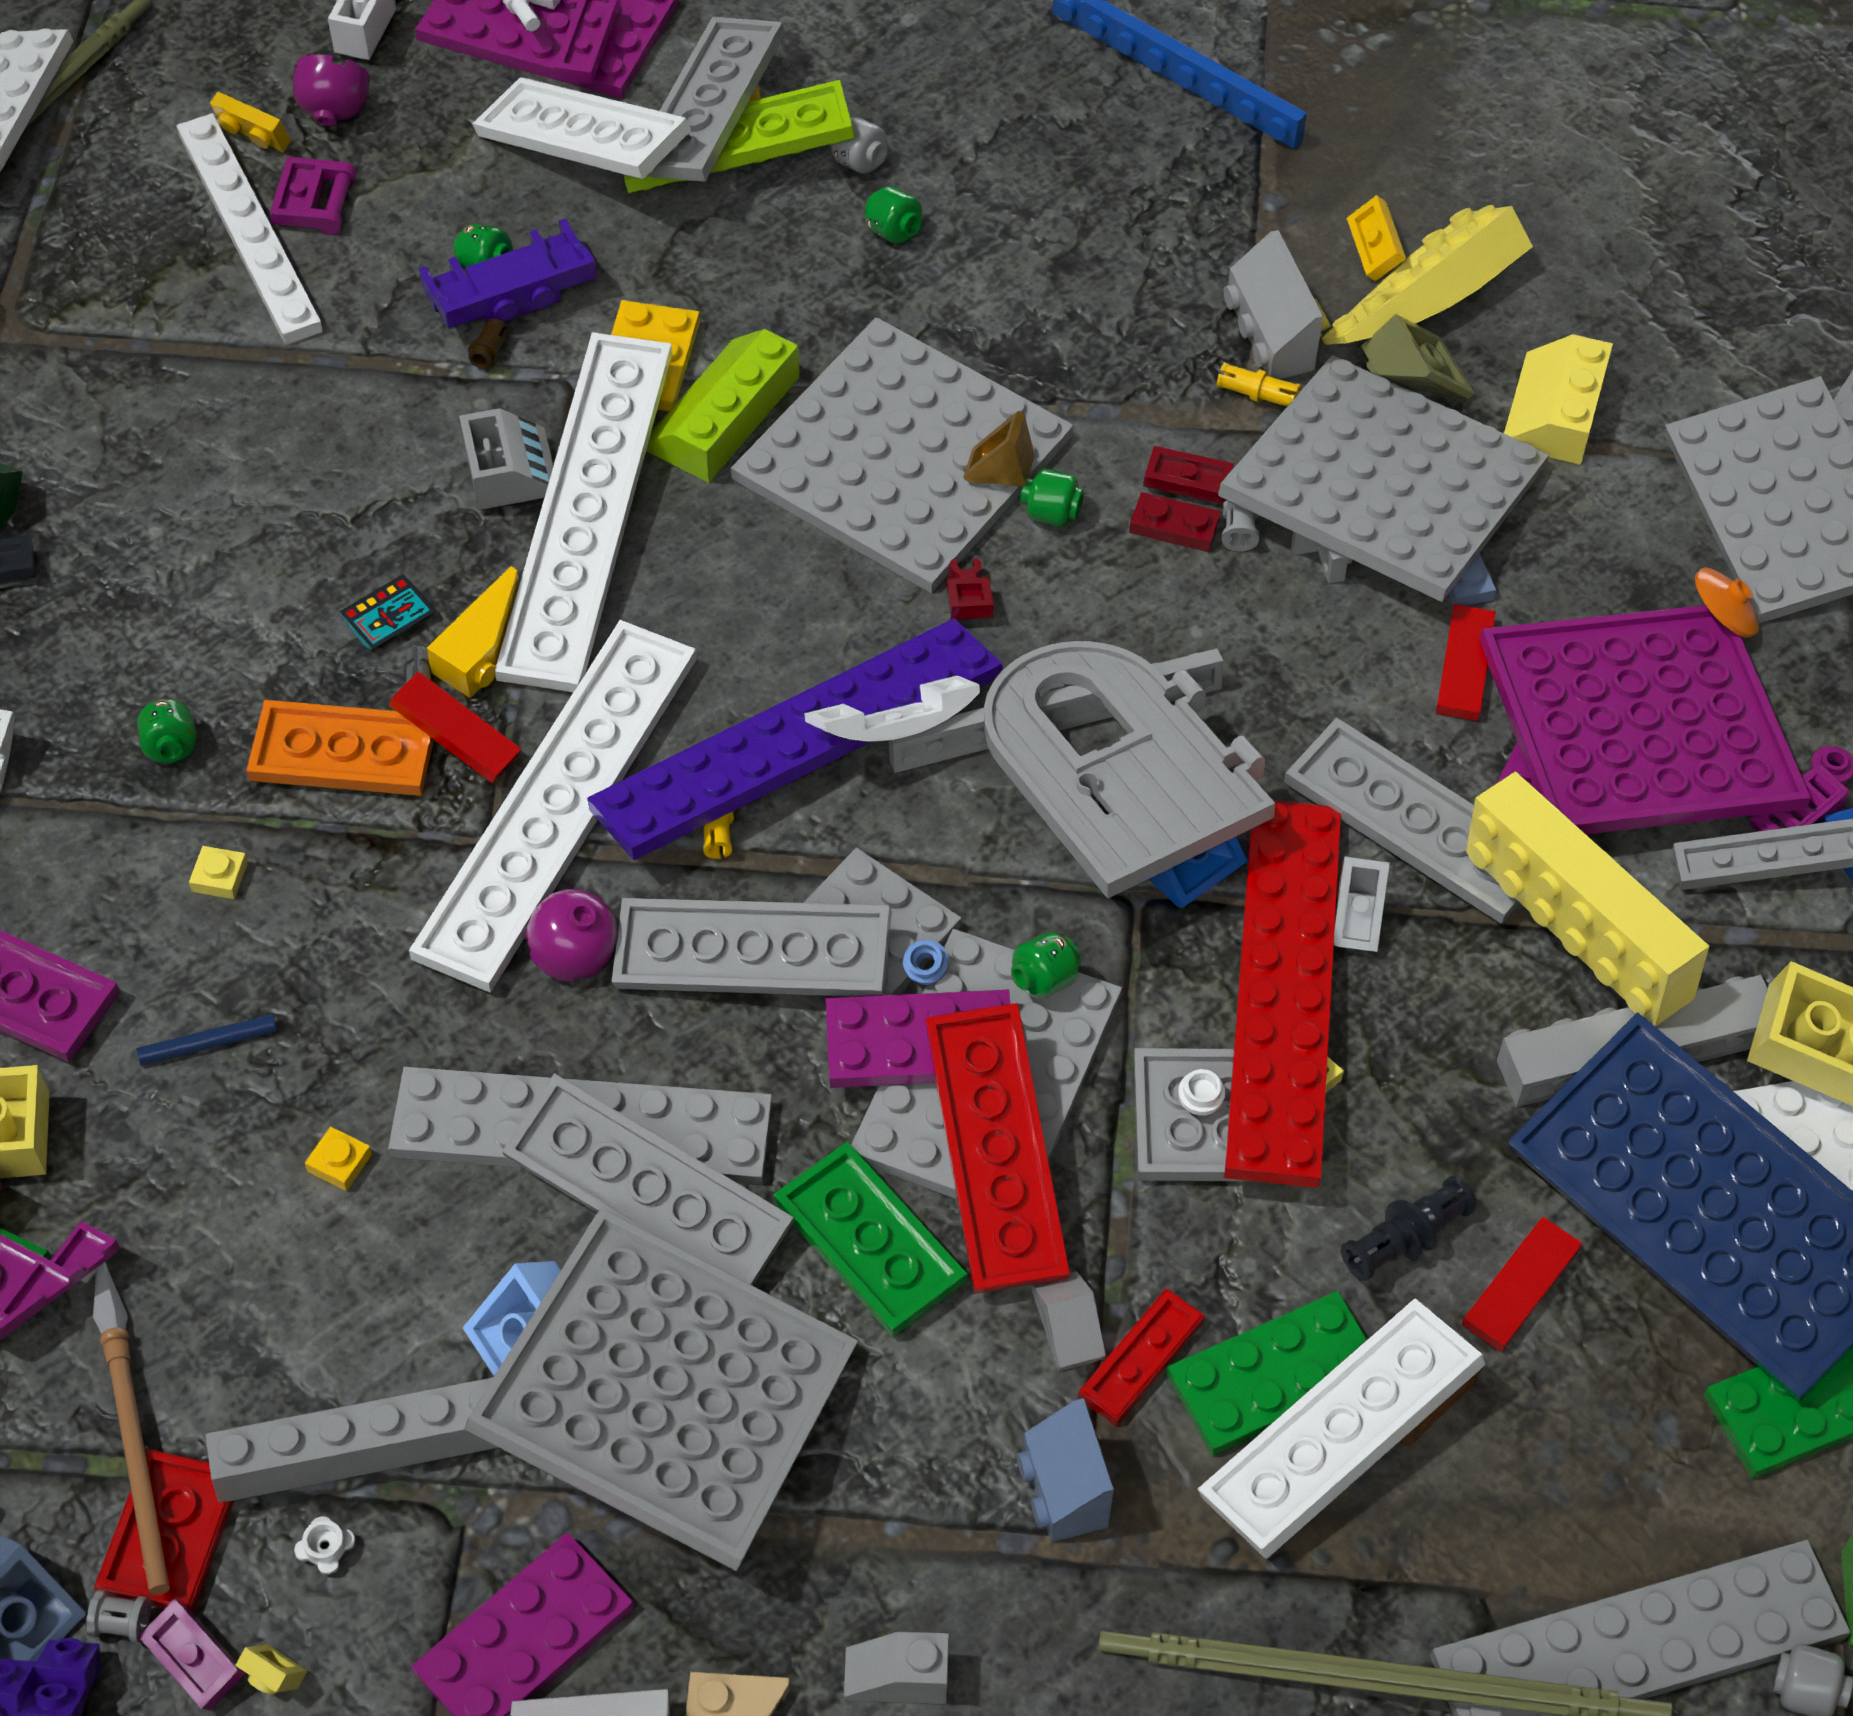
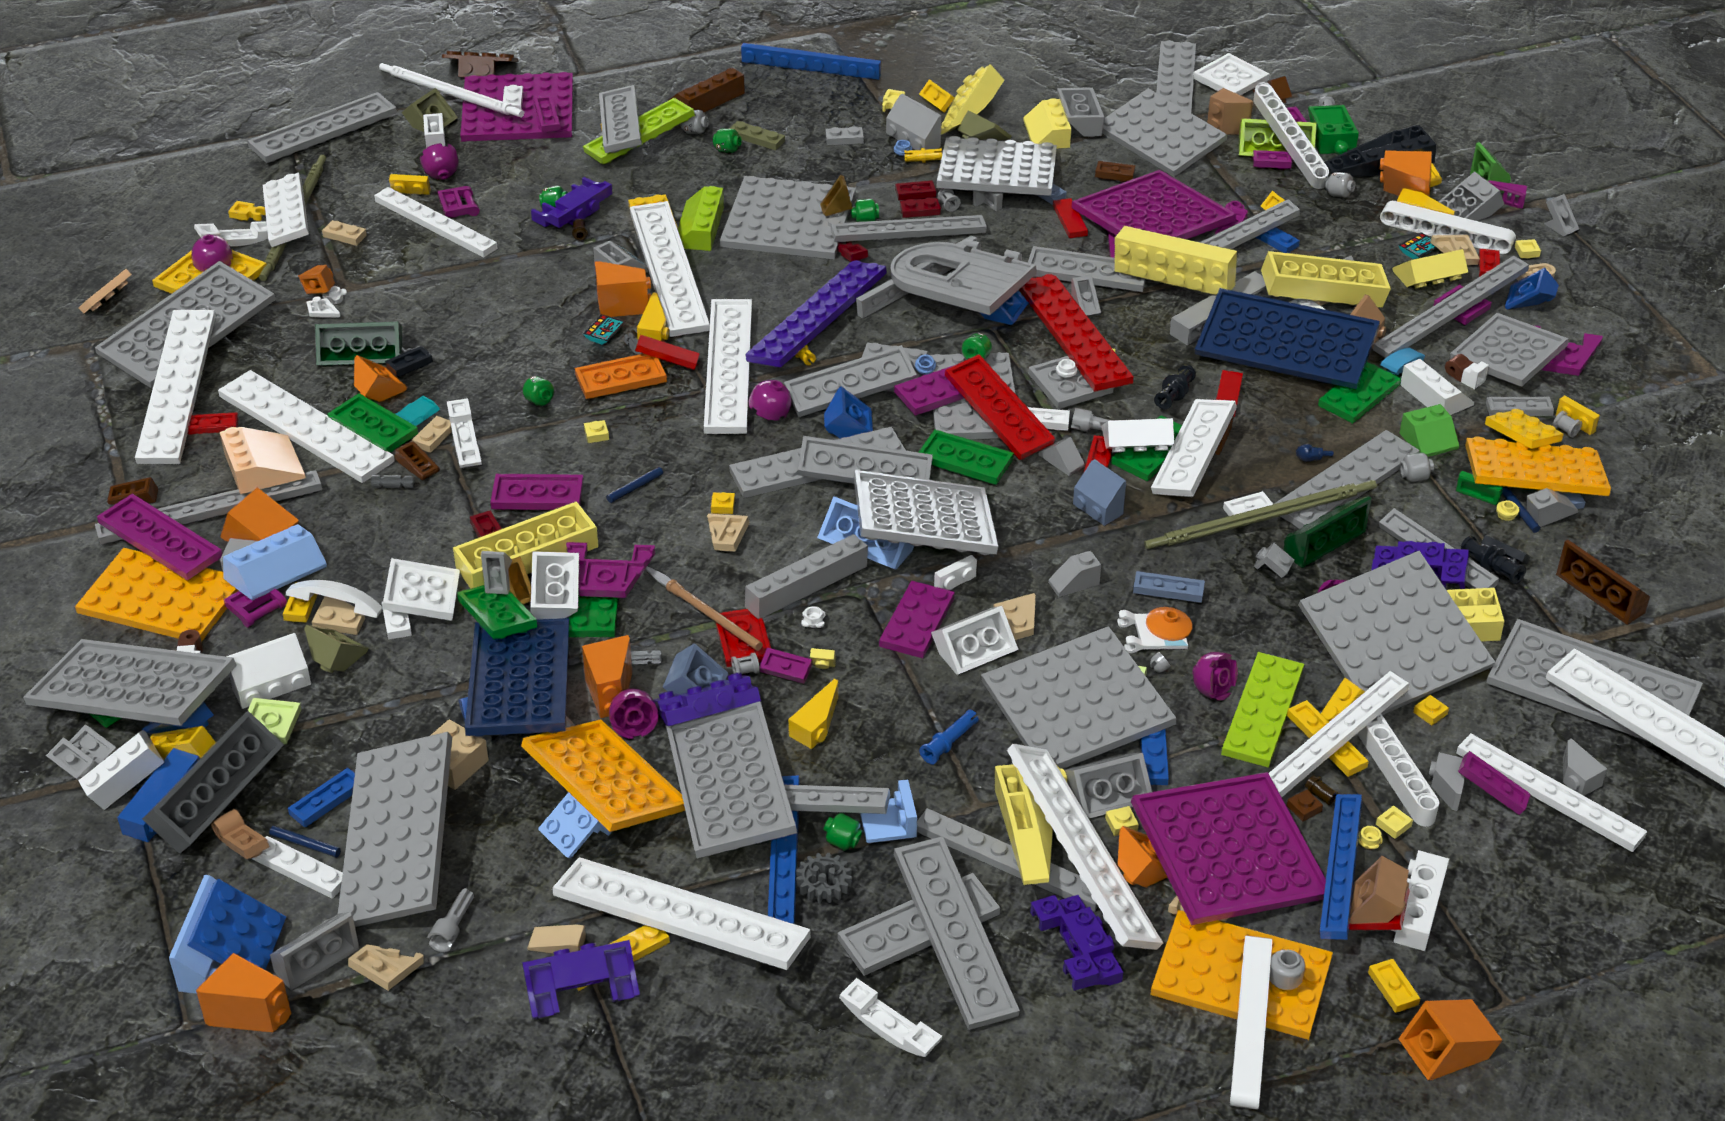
camera: 25 degrees left, 15 degrees down
(75, 196) = (344, 232): none -> tan plate
(296, 1241) = (727, 530): none -> tan wing
(450, 536) = (621, 289): none -> orange slope
(582, 127) = (570, 142): white plate -> none
(641, 1561) = (956, 573): none -> white plate
(701, 1035) = (847, 415): none -> blue slope
(931, 81) = (713, 91): none -> reddish brown slope
(940, 702) = (868, 282): white slope -> none
(965, 216) = (758, 135): none -> olive plate
(1098, 1203) = (1052, 418): none -> white plate
(1110, 576) = (908, 228): none -> light grey plate
(1135, 277) = (840, 136): none -> light grey plate
(1169, 1243) = (1084, 420): none -> light grey piece
(1231, 349) = (902, 145): none -> medium blue plate
(1239, 1343) = (1138, 434): none -> white slope
(1284, 213) = (890, 98): none -> light yellow plate
(1376, 1632) = (1246, 503): none -> white plate
(1596, 1537) = (1309, 453): none -> dark blue piece
(1631, 570) = (1114, 171): none -> reddish brown plate
(1643, 385) = (1082, 110): none -> light grey slope
(1728, 601) = (1162, 165): orange dish -> none

